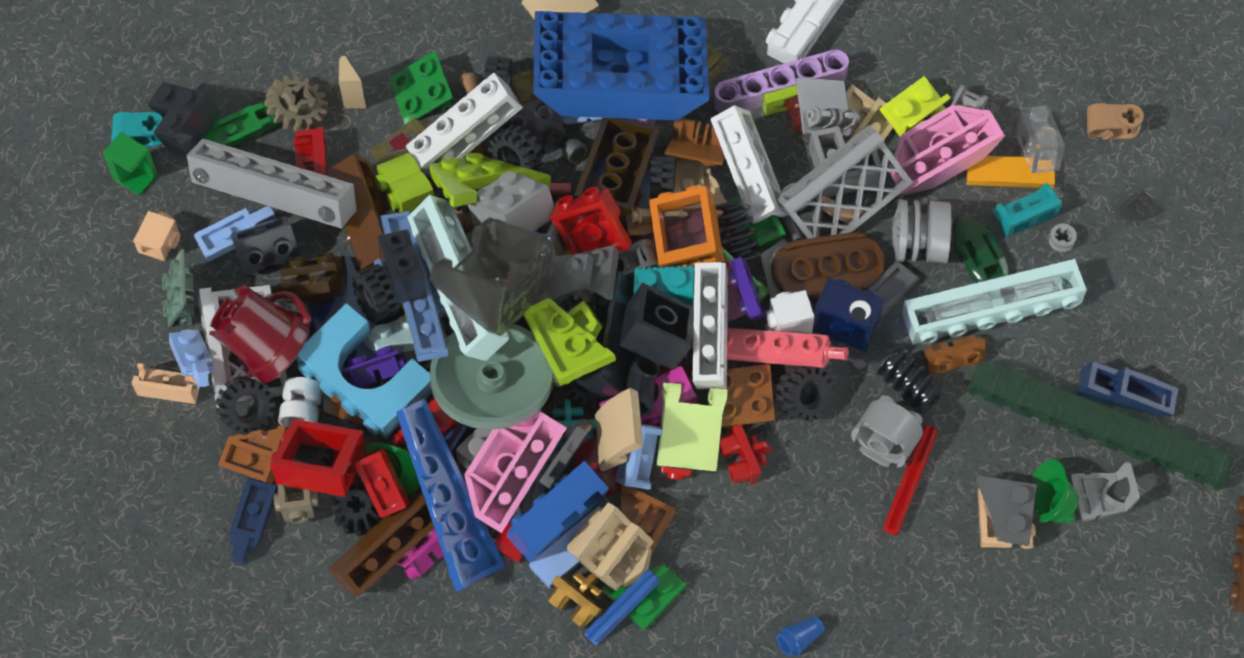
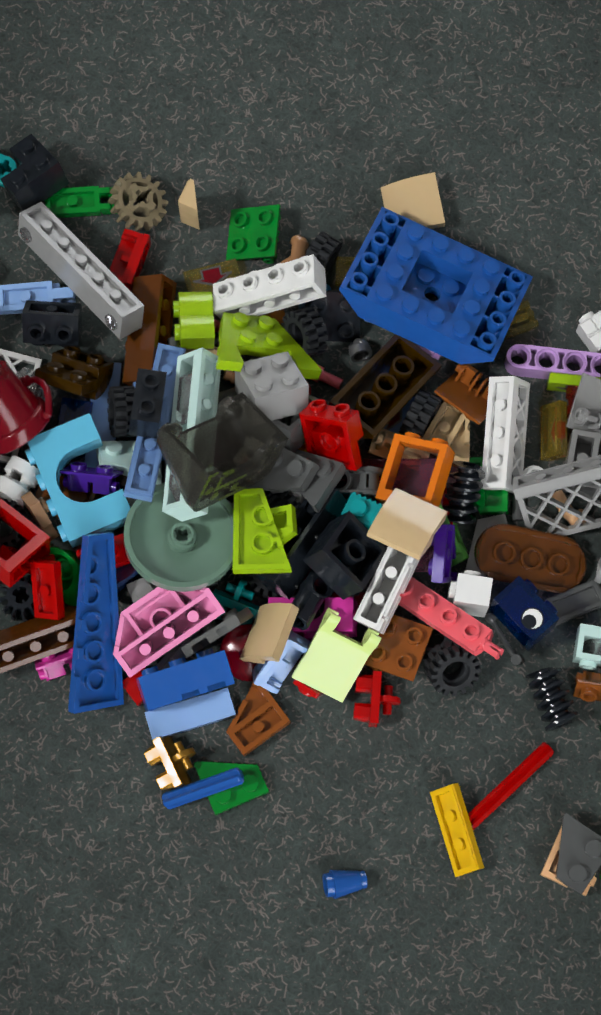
camera: 25 degrees right, 10 degrees up
(334, 416) = (39, 510): none -> medium nougat plate
(612, 547) = (215, 734): tan piece -> none
(703, 268) = (407, 523): none -> tan slope
(792, 146) = (554, 430): none -> clear yellow tile
(883, 539) = (456, 830): none -> yellow tile
(888, 432) = (507, 737): light grey brick -> none

